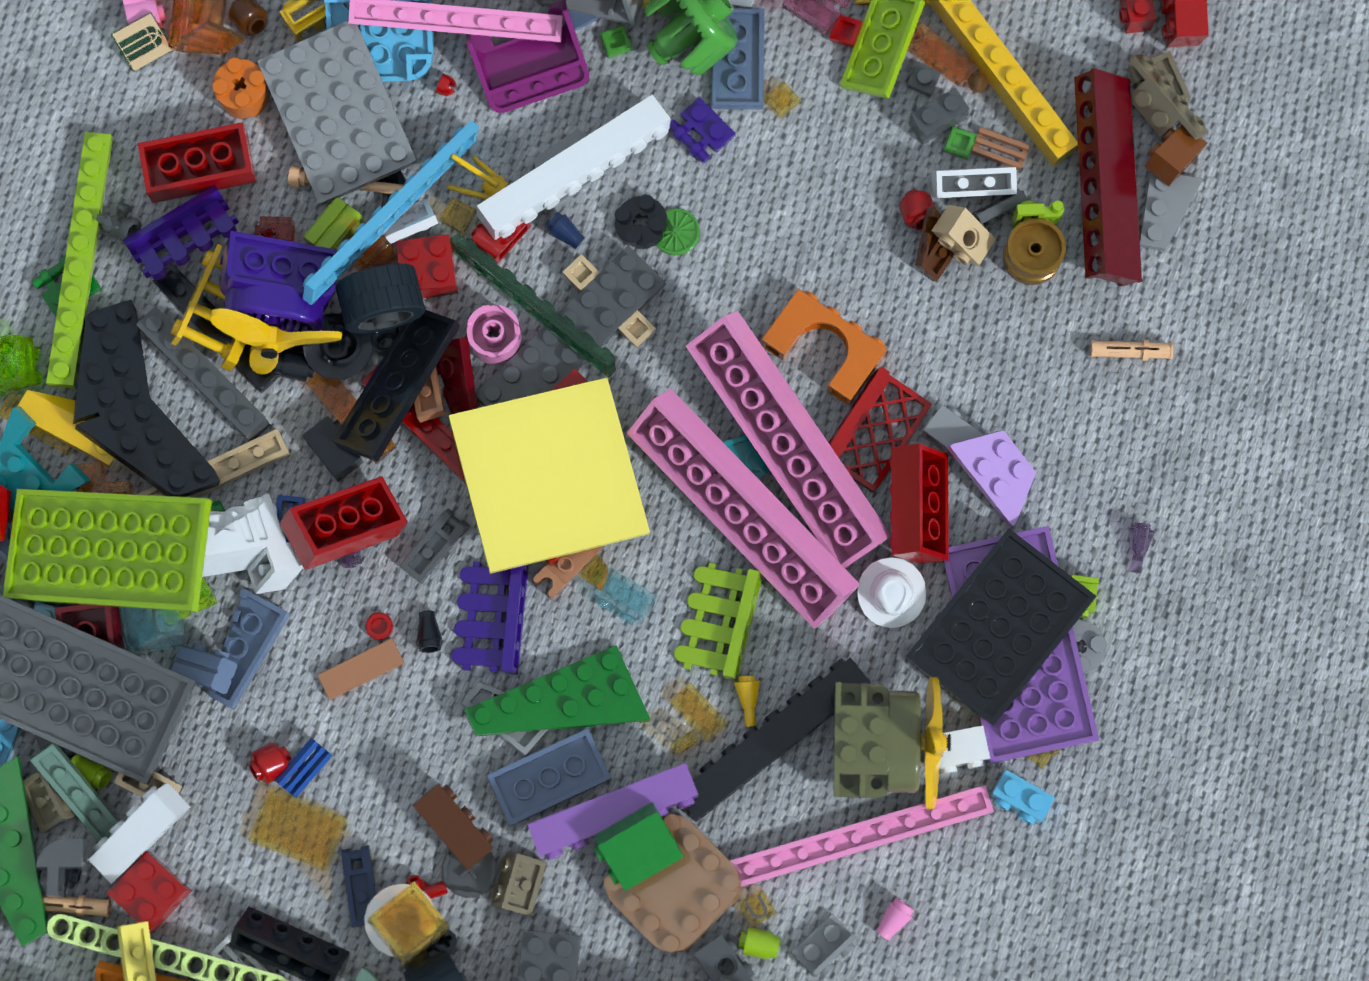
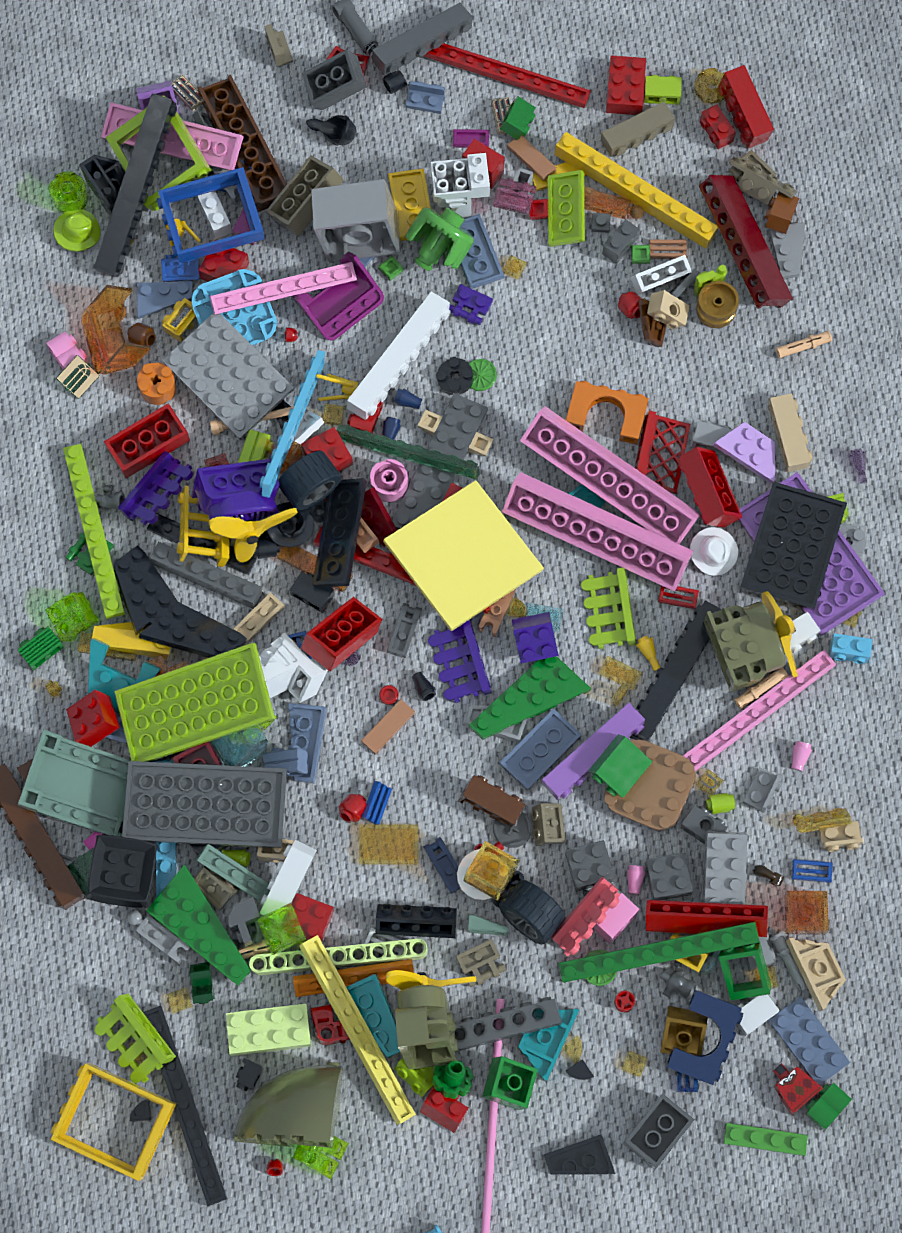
camera: 20 degrees left, 5 degrees down
(93, 894) = (281, 929): none -> clear neon green hips
(526, 263) = (391, 427): none -> dark blue cone
(599, 623) = (535, 637): none -> dark purple brick
(839, 648) = (678, 596): none -> red tile
(875, 806) = (753, 693): none -> light nougat pin
(1061, 466) = (789, 432): none -> tan brick

